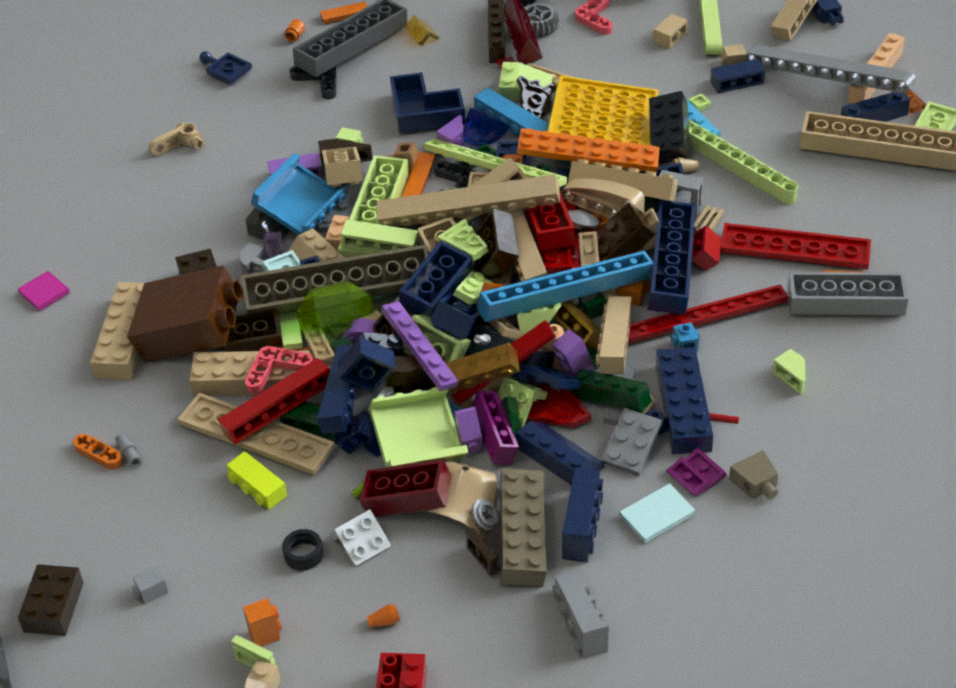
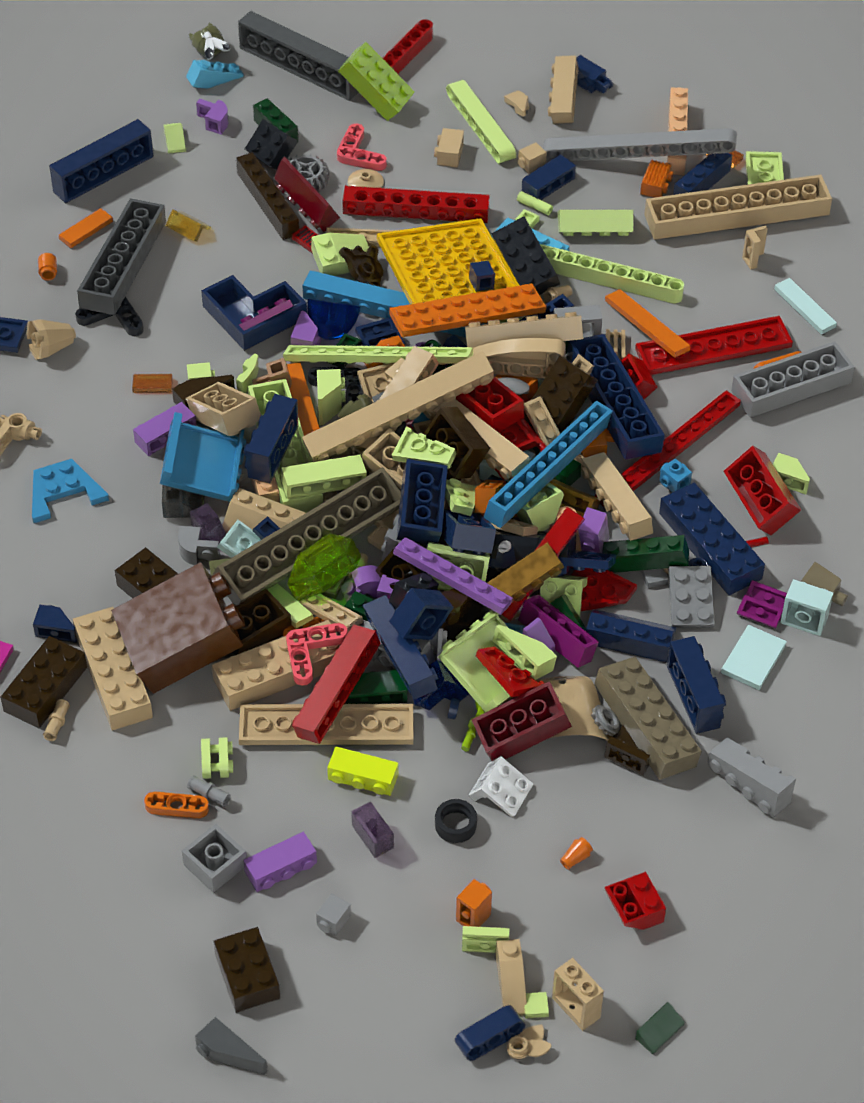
camera: 30 degrees left, 5 degrees up
(57, 354) = (56, 720): none -> tan pin
(66, 322) = (43, 682): none -> dark brown brick
(90, 502) = (214, 858): none -> light grey brick
(104, 281) = (54, 623): none -> dark blue slope
(140, 525) = (280, 861): none -> medium lavender brick
(151, 426) = (225, 765): none -> yellowish green brick
(189, 184) = (62, 481): none -> dark azure wing
(227, 528) = (372, 829): none -> clear purple brick
(257, 78) = (48, 337): none -> tan cone
(311, 135) = (152, 383): none -> clear orange tile
(355, 195) = (271, 438): none -> dark blue brick
(365, 458) = (453, 709): none -> dark blue tile
(389, 147) = (250, 372): none -> yellowish green slope
(417, 441) = (505, 672): none -> red wing
(435, 177) = (329, 394): none -> yellowish green slope
(441, 103) = (265, 314): none -> magenta plate
(447, 432) = (525, 651): none -> yellowish green slope
(585, 39) = (366, 178): none -> tan dish
(612, 64) = (415, 204): none -> red brick
(619, 128) = (481, 276): none -> dark blue brick
(712, 90) = (537, 204): none -> yellowish green piece
(728, 486) = (806, 607): none -> light aqua brick
(745, 210) = (647, 323): none -> orange tile
(753, 13) = (519, 101): none -> tan slope
(753, 374) = (762, 490): none -> red brick
(755, 118) = (595, 221): none -> yellowish green slope
(832, 100) = (656, 179): none -> orange brick
(884, 175) = (754, 246): none -> tan panel
(903, 240) = (805, 306): none -> light aqua tile

